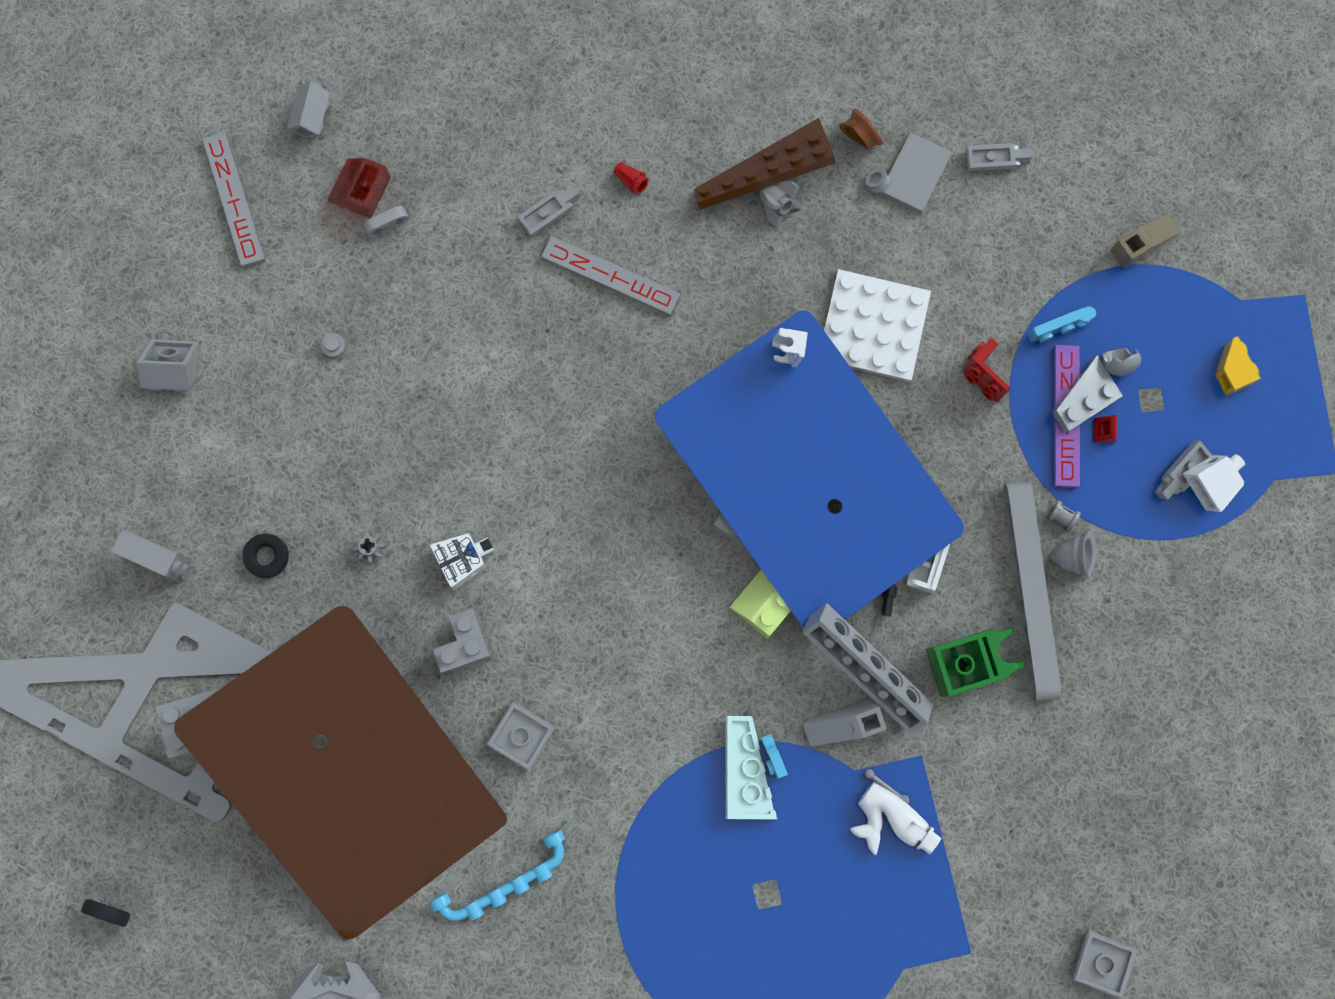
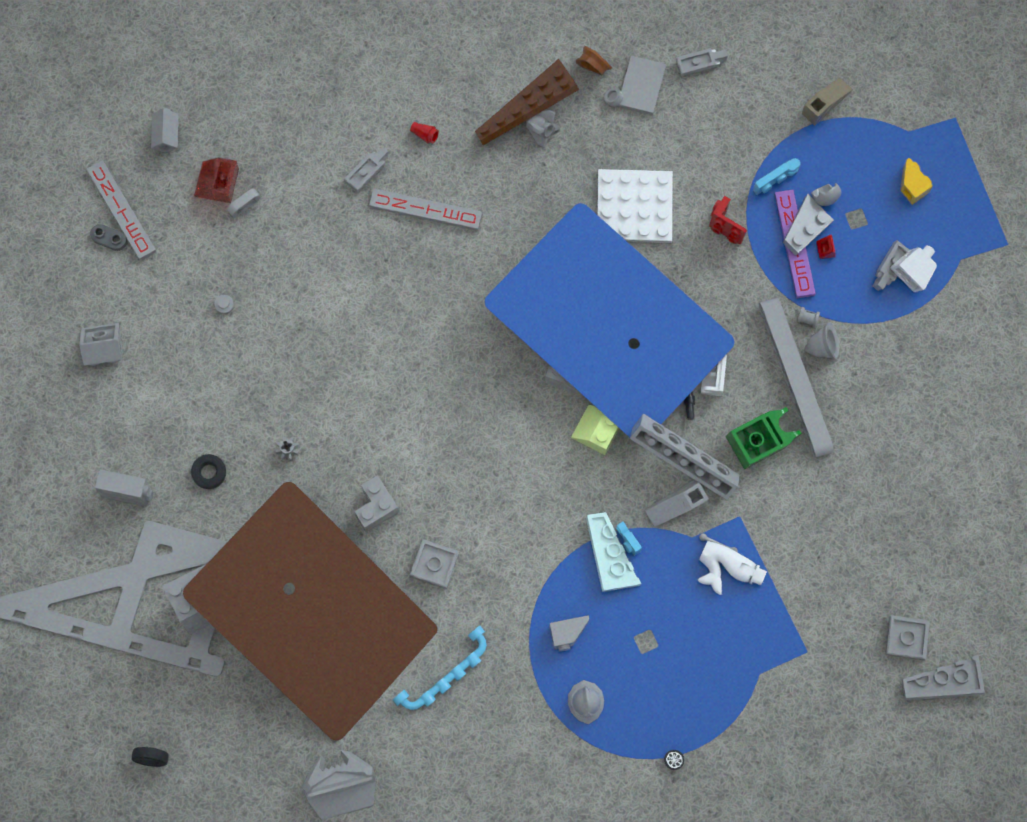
camera: 10 degrees left, 5 degrees down
(209, 230) = (107, 237): none -> dark grey plate
(461, 558) = (359, 442): torso -> none
(668, 864) = (567, 632): none -> light grey slope
(673, 957) = (586, 701): none -> light grey piece
(792, 343) = (576, 228): white hinge -> none

